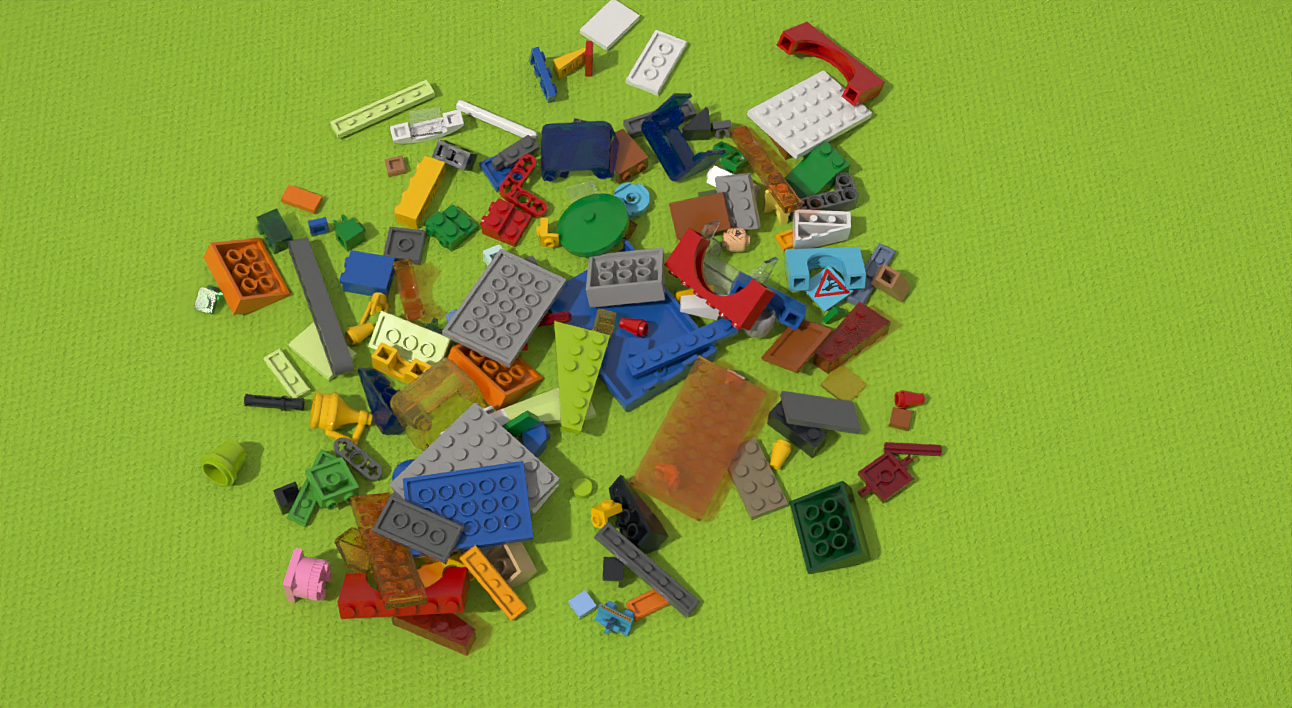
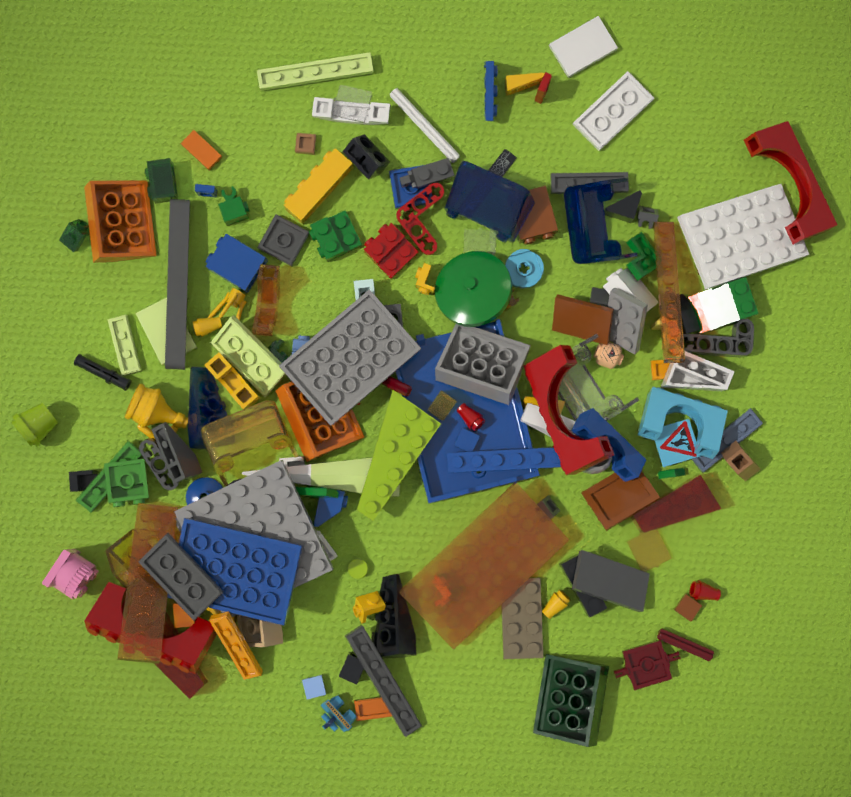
camera: 20 degrees right, 25 degrees up
(371, 442) = (178, 457): none -> dark grey slope

